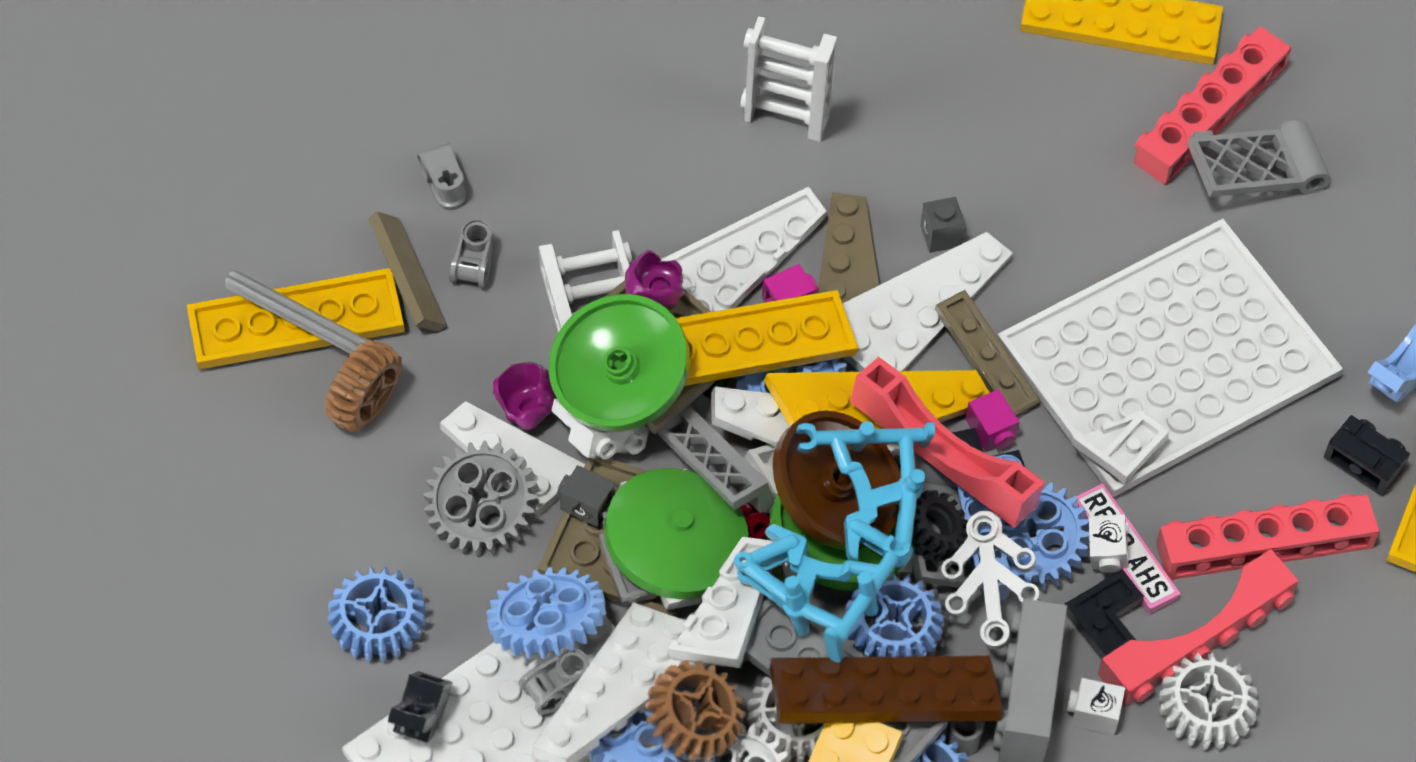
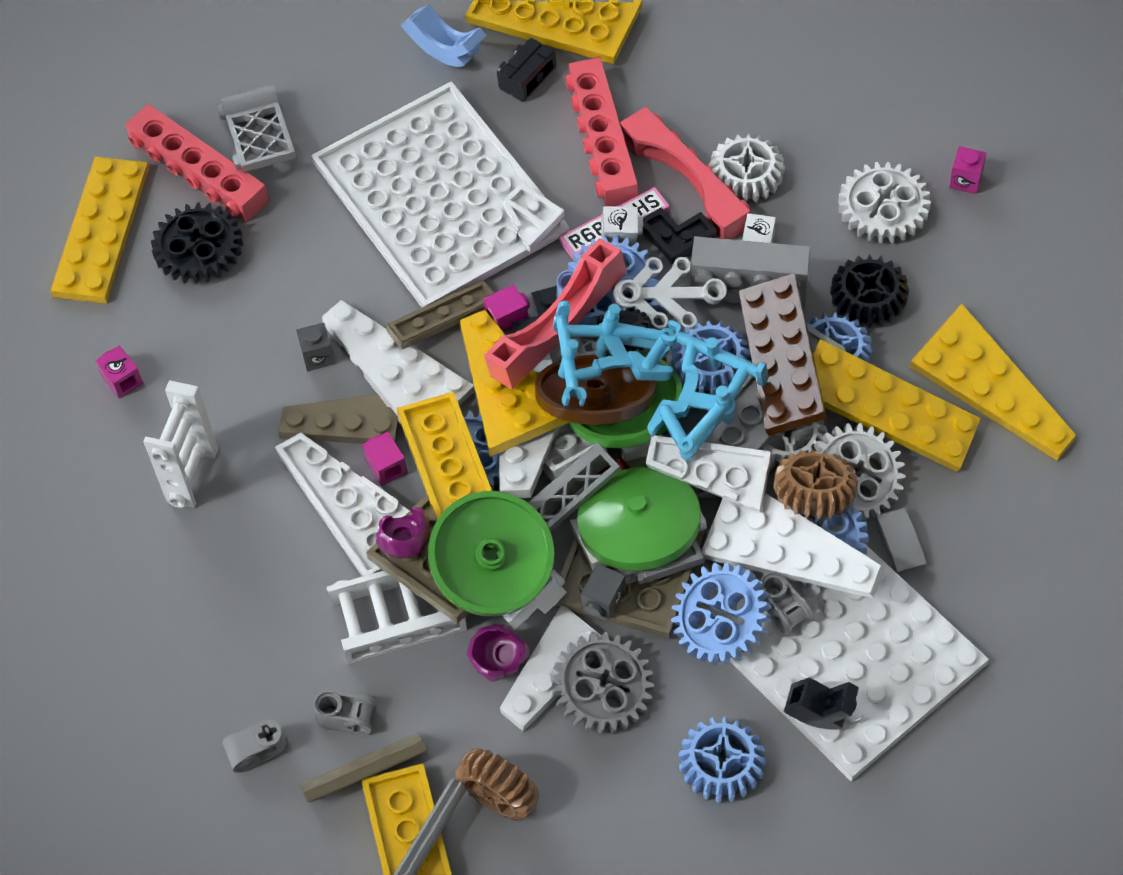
camera: 85 degrees left, 0 degrees up
(917, 39) = (119, 371): none -> dark pink brick
(1065, 100) = (191, 236): none -> black gear

